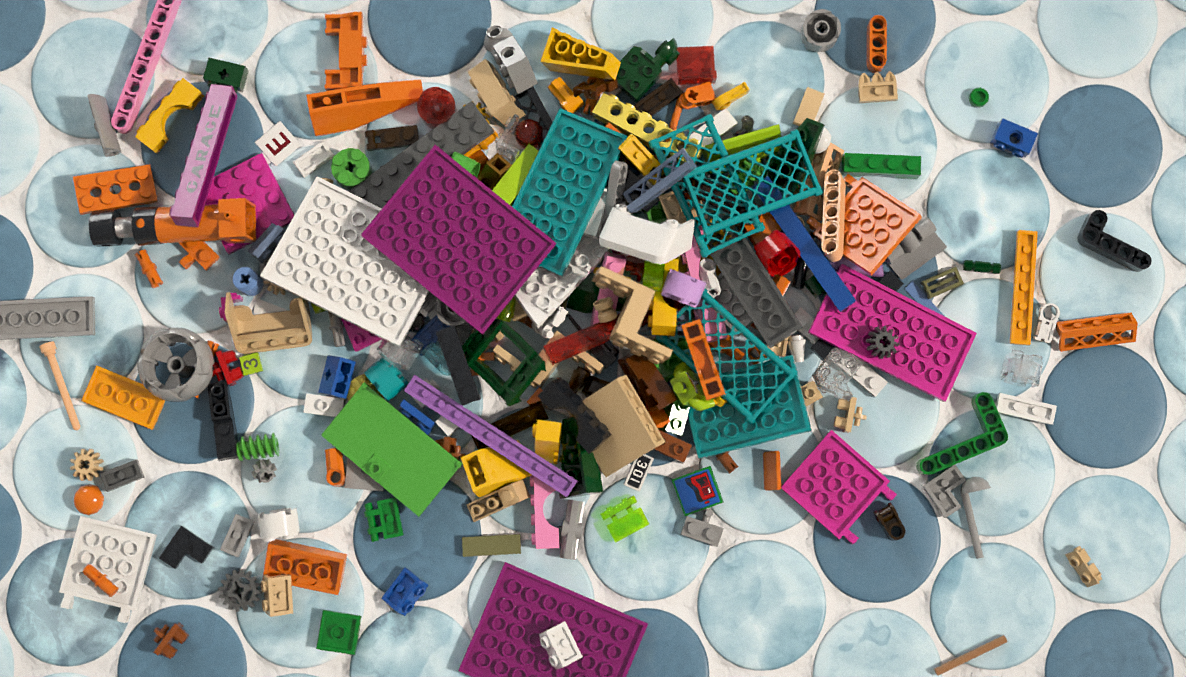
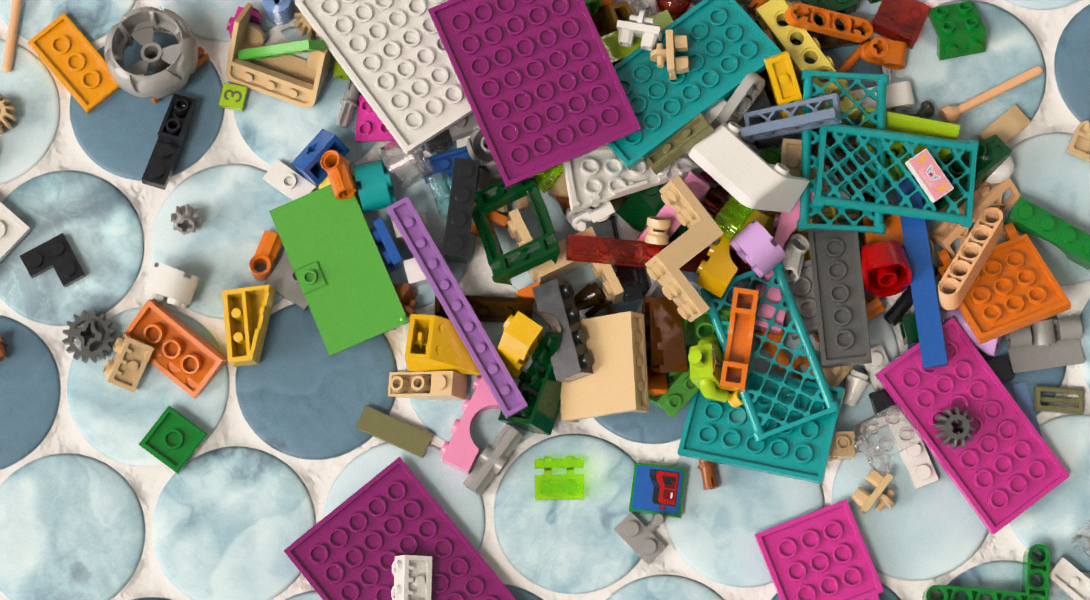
camera: 25 degrees right, 5 degrees down
(122, 475) = (28, 145): dark grey plate -> none
(225, 359) = (204, 97): red hips -> none
(237, 535) = (118, 275): light grey plate -> none
(257, 447) = (192, 190): bright green piece -> none
(269, 315) = (280, 50): none -> bright green tile
(347, 523) = (246, 322): none -> yellow wedge
(358, 384) = (339, 174): none -> orange piece
(389, 516) = (296, 343): green plate -> none
(405, 592) = (270, 433): blue bracket -> none
(527, 170) = (640, 27): none -> white hips
(548, 169) = (675, 64): none -> tan hips
(589, 239) = (680, 143): none -> olive tile
(638, 472) = (602, 435): sticker -> none
(647, 92) = (829, 18): none -> orange beam
(673, 447) = (654, 426): dark orange brick -> none
(730, 96) = (918, 71): yellow piece -> none
(740, 52) = (958, 30): none -> green bracket
(765, 116) = (951, 113): none -> light nougat piece
(772, 470) = (754, 511): orange slope -> none
(776, 172) = (929, 175): none -> bright pink tile
(828, 24) = (1074, 47): light grey brick -> none

